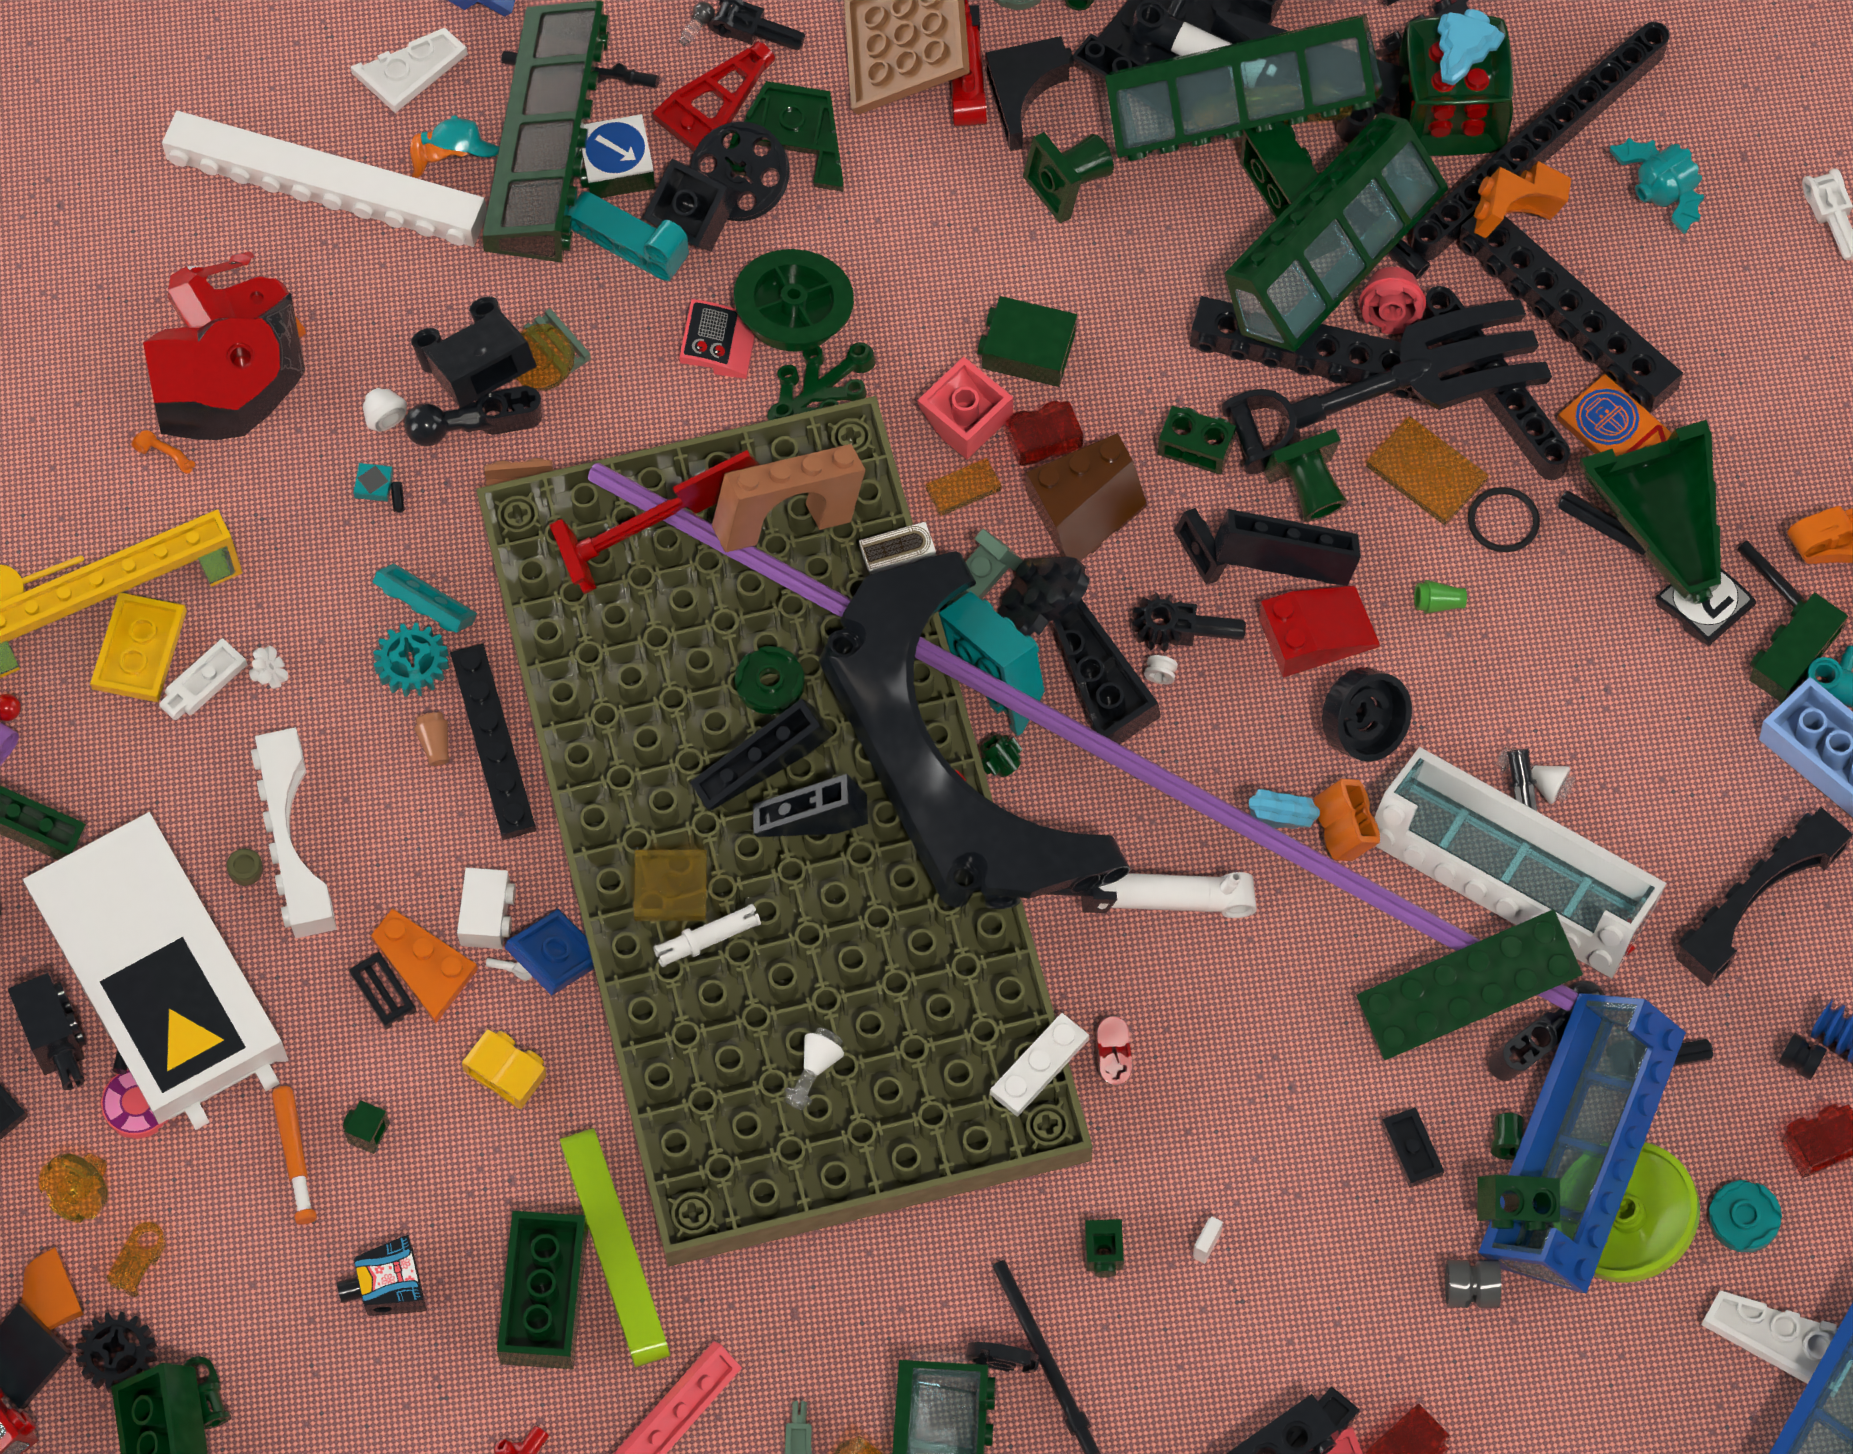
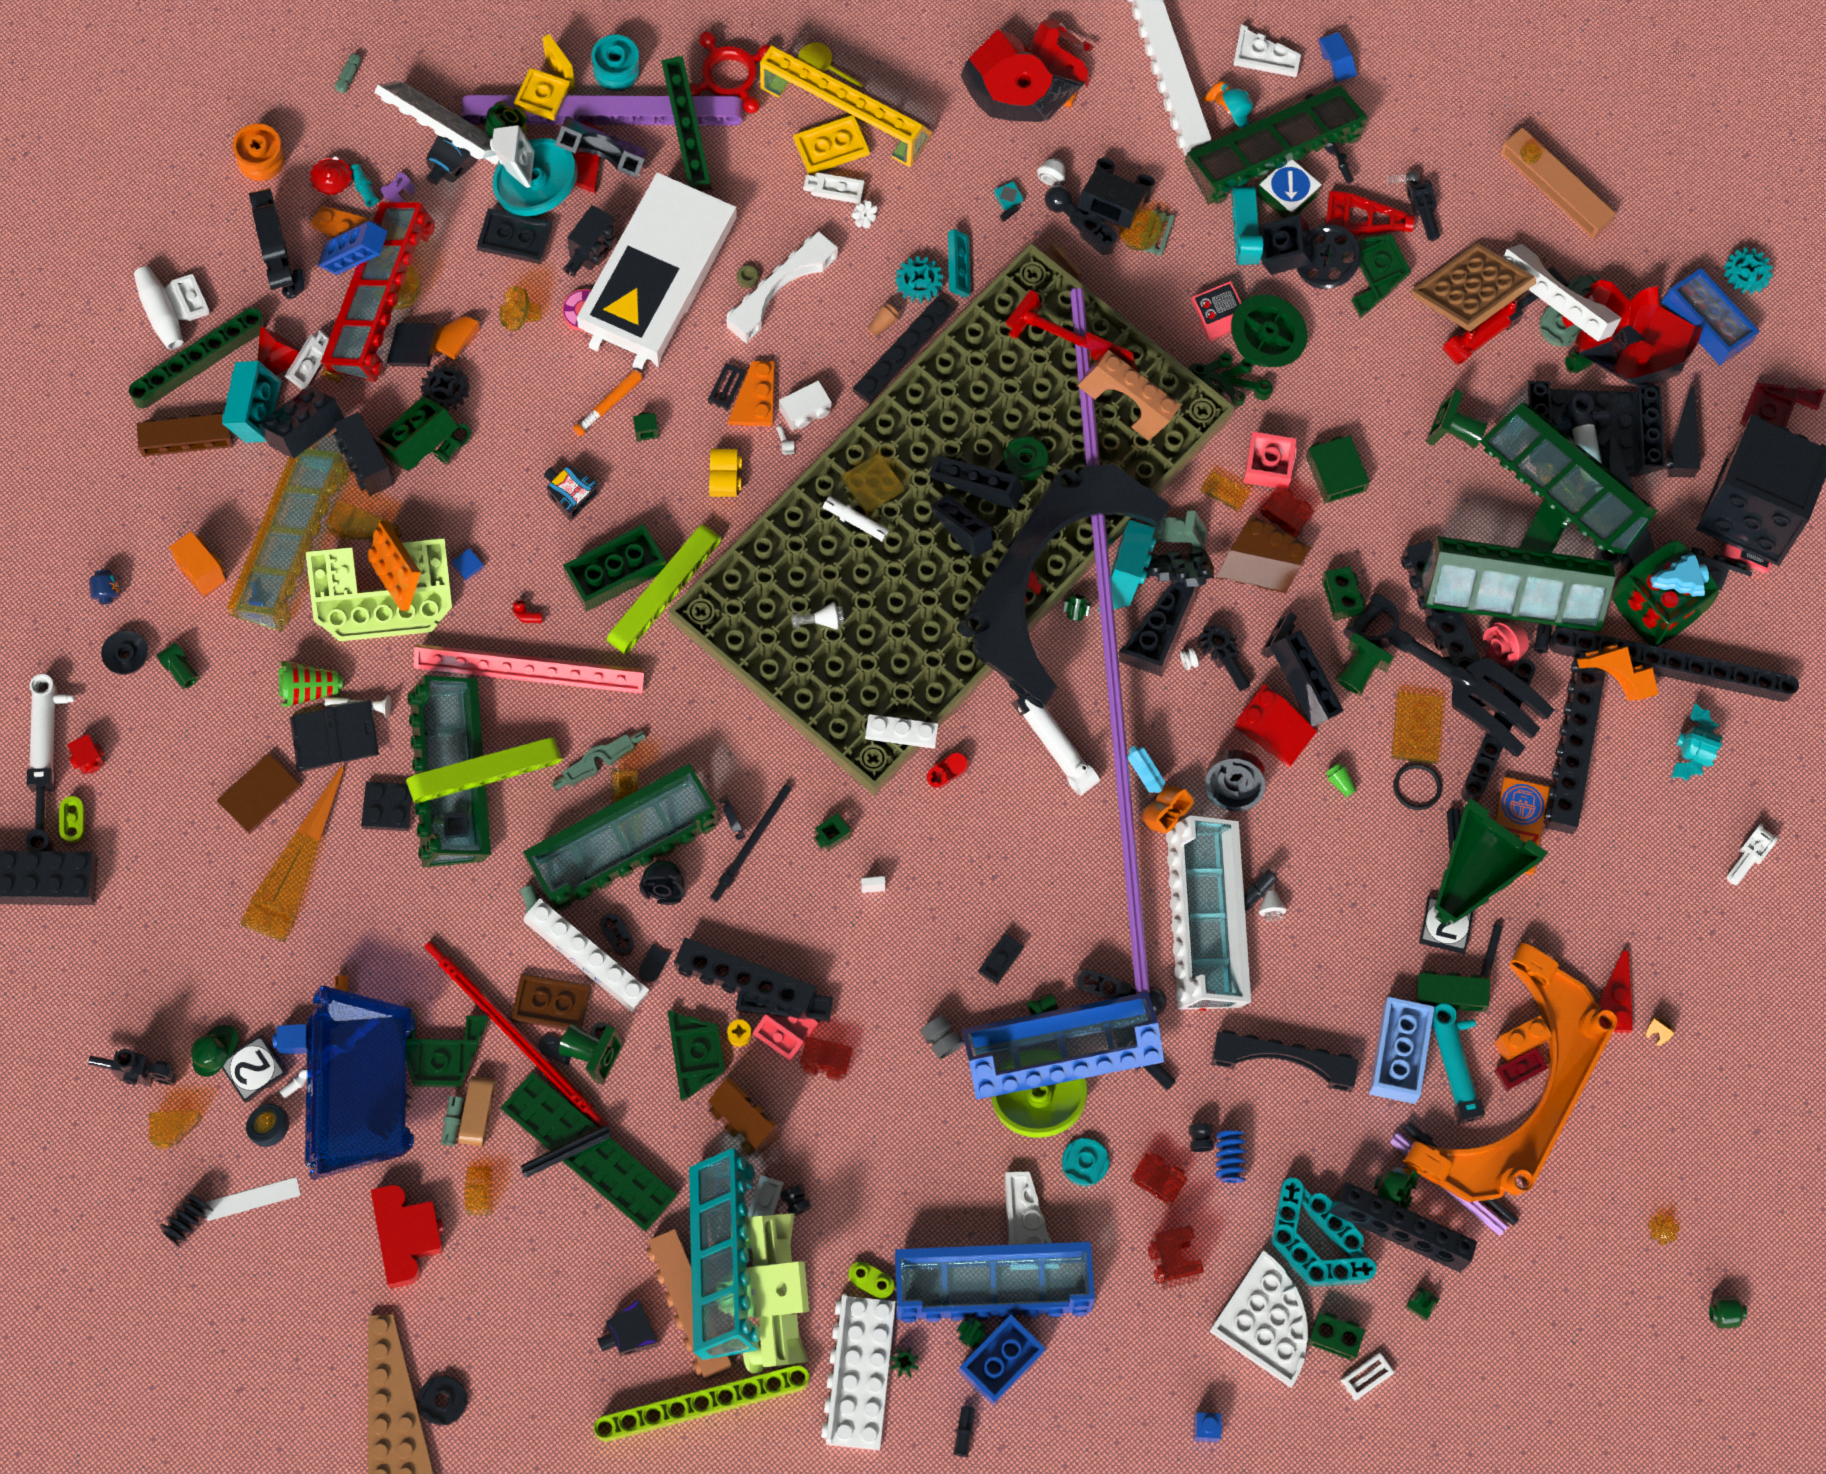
camera: 50 degrees right, 5 degrees up
(134, 1260) = (499, 365): clear yellow piece -> none
(146, 439) = (949, 70): orange piece -> none
(552, 952) = (801, 451): blue tile -> none
(897, 548) = (1150, 474): tile -> none
(1020, 76) = (1499, 364): black arch -> none
(1469, 984) = (1112, 930): dark green plate -> none
(1518, 1198) = (1004, 1027): dark green brick -> none

